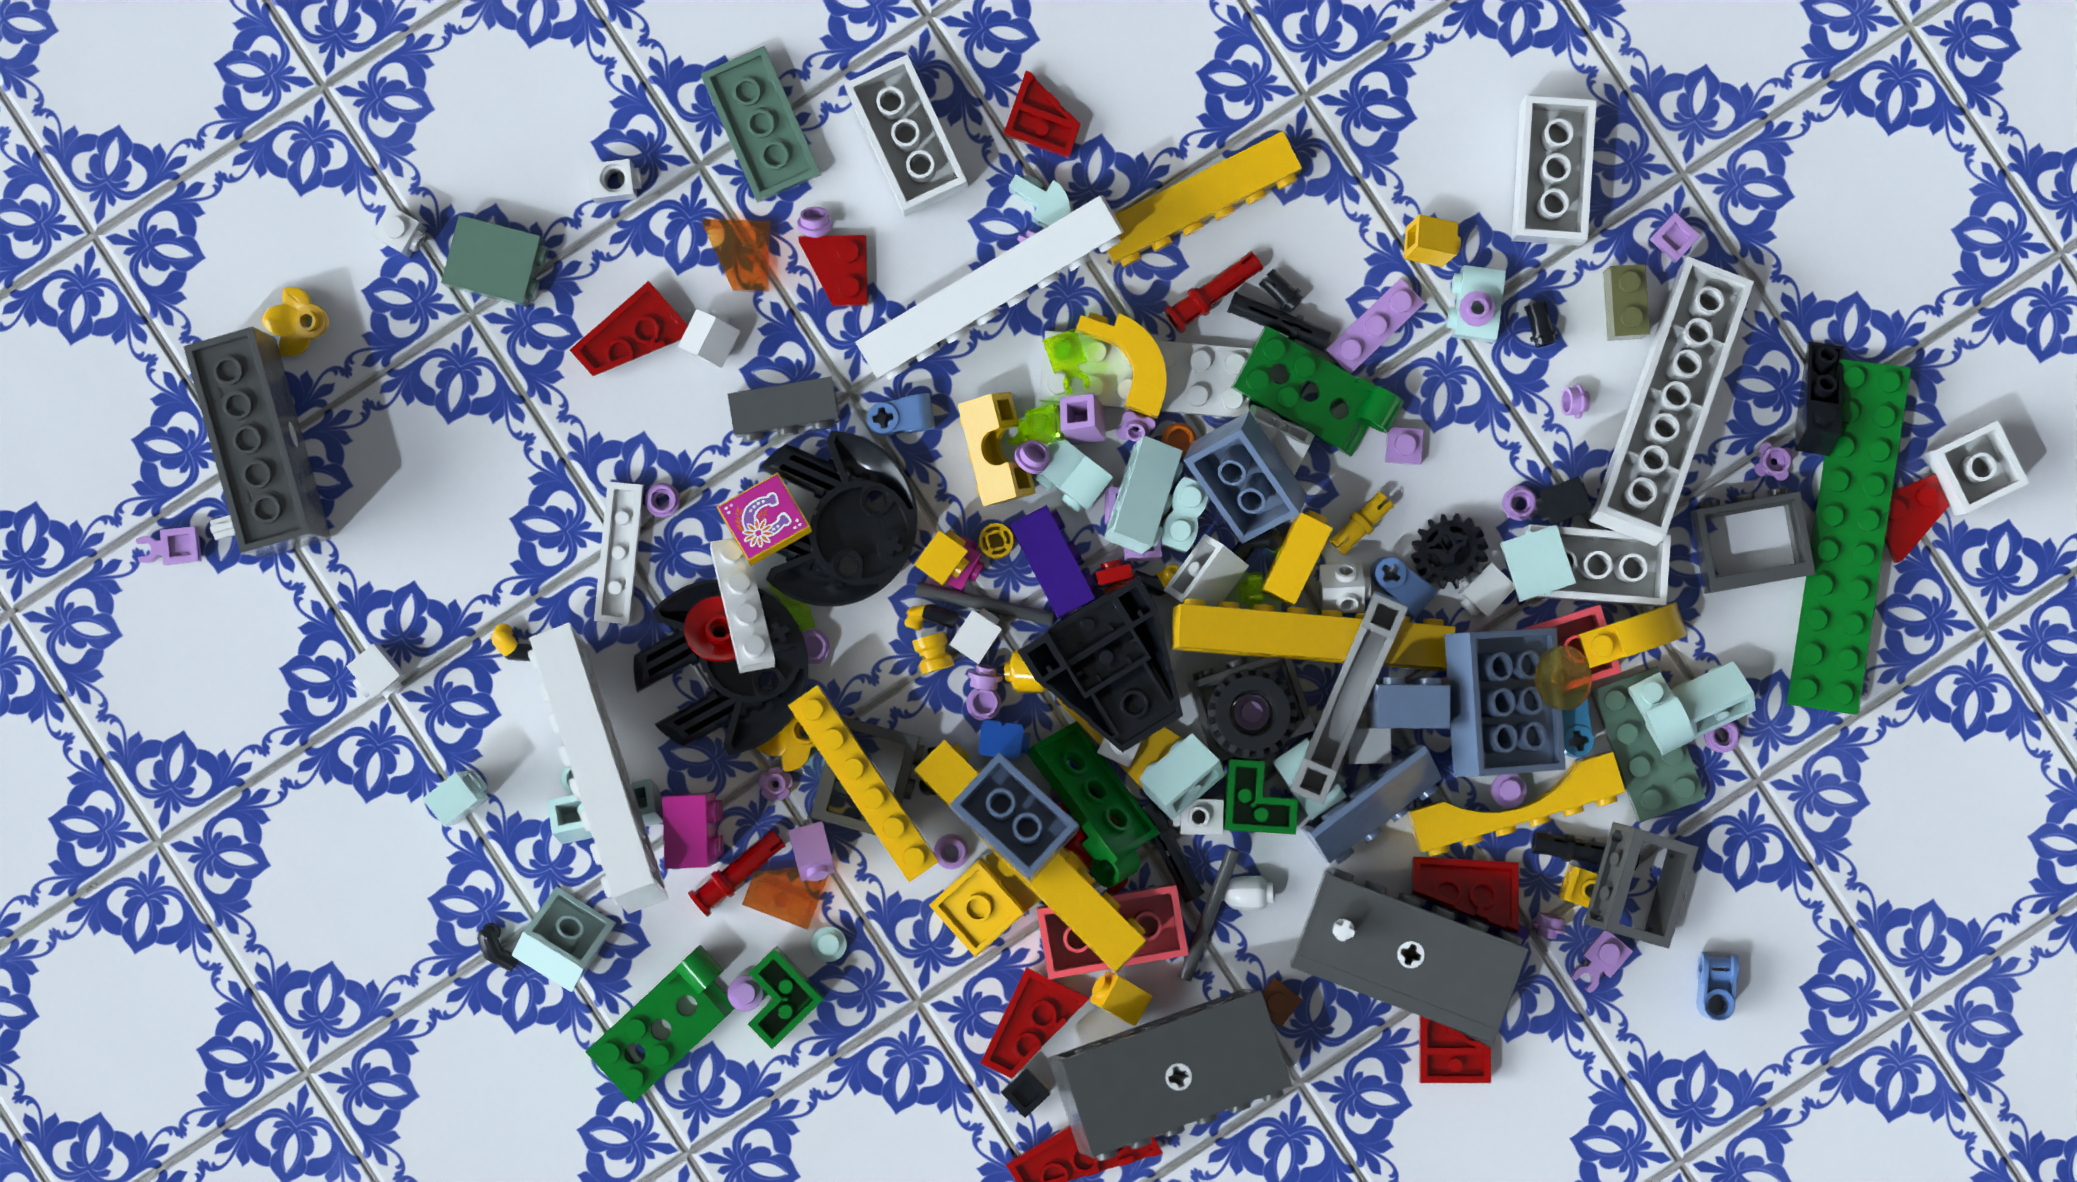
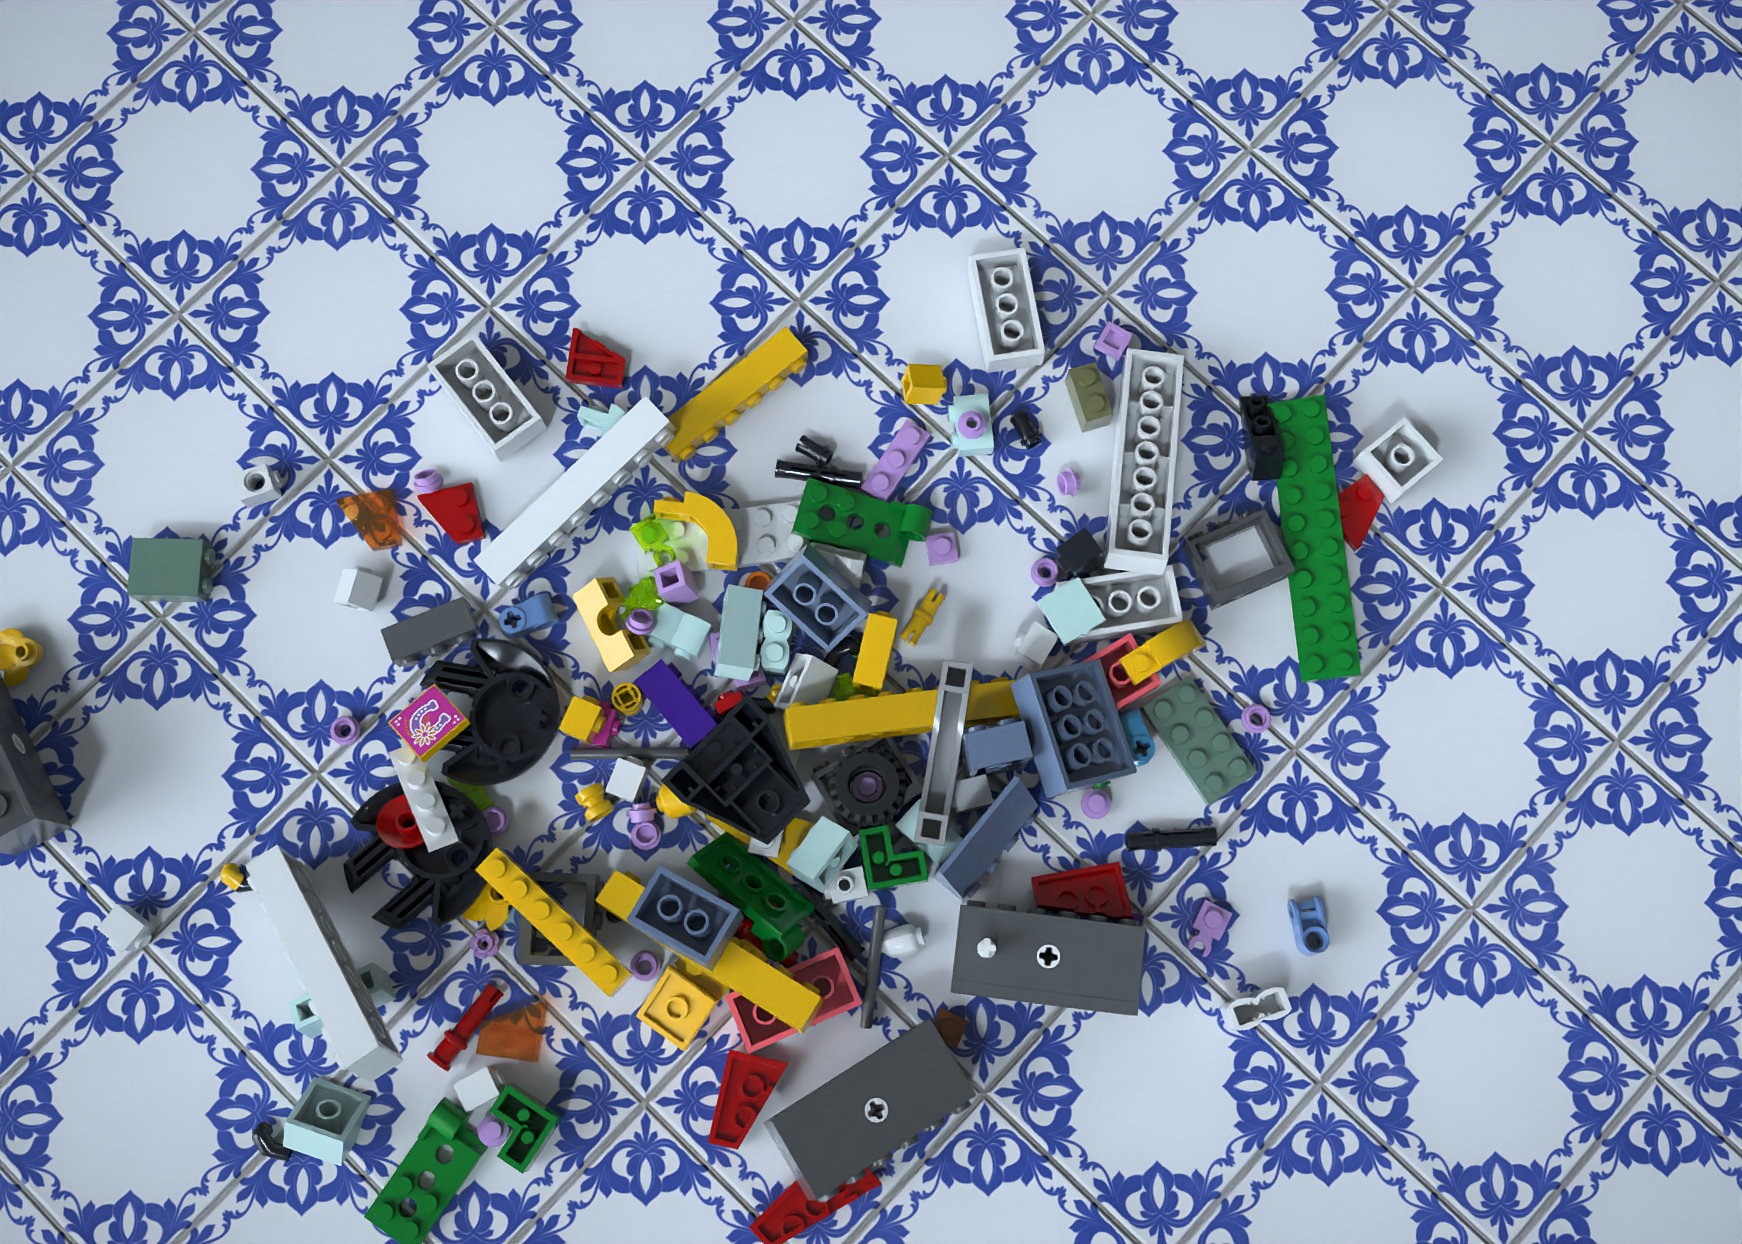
camera: 15 degrees left, 10 degrees down
(400, 231) = (87, 563): white brick -> none
(457, 797) = (210, 1019): light aqua brick -> none
(619, 553) = (316, 782): white plate -> none
(630, 331) = (293, 601): red wing -> none
(691, 830) = (415, 997): dark pink brick -> none
(740, 943) = (480, 1088): none -> white brick
(760, 124) = (370, 416): sand green plate -> none
(812, 852) = (525, 993): lavender brick -> none
(829, 944) = (557, 1070): light aqua plate -> none
(931, 613) = (586, 770): black arm -> none
(1007, 739) = (668, 855): blue brick -> none
(1025, 1092) = (752, 1159): black plate -> none
(1120, 998) = (814, 1056): yellow brick -> none
(1135, 419) = (720, 575): lavender plate -> none
(1200, 300) = (751, 472): red pin -> none
(1343, 587) = (919, 669): white brick -> none
(1405, 586) = (969, 653): medium blue piece -> none
(1435, 549) = (998, 621): black gear -> none
(1451, 1055) = (1104, 1038): red wing -> none
(1548, 925) = (1157, 908): lavender plate -> none
(1563, 678) = (1115, 696): clear yellow piece -> none
(1574, 885) = (1170, 874): yellow brick -> none
(1584, 782) = (1155, 782): yellow arch -> none
(1616, 877) = (1202, 854): dark grey window -> none
(1619, 1066) = (1259, 1006): none -> white brick
(1662, 712) = (1204, 710): light aqua brick -> none
(1715, 698) = (1241, 690): light aqua brick -> none
(1783, 458) = (1243, 488): lavender plate -> none

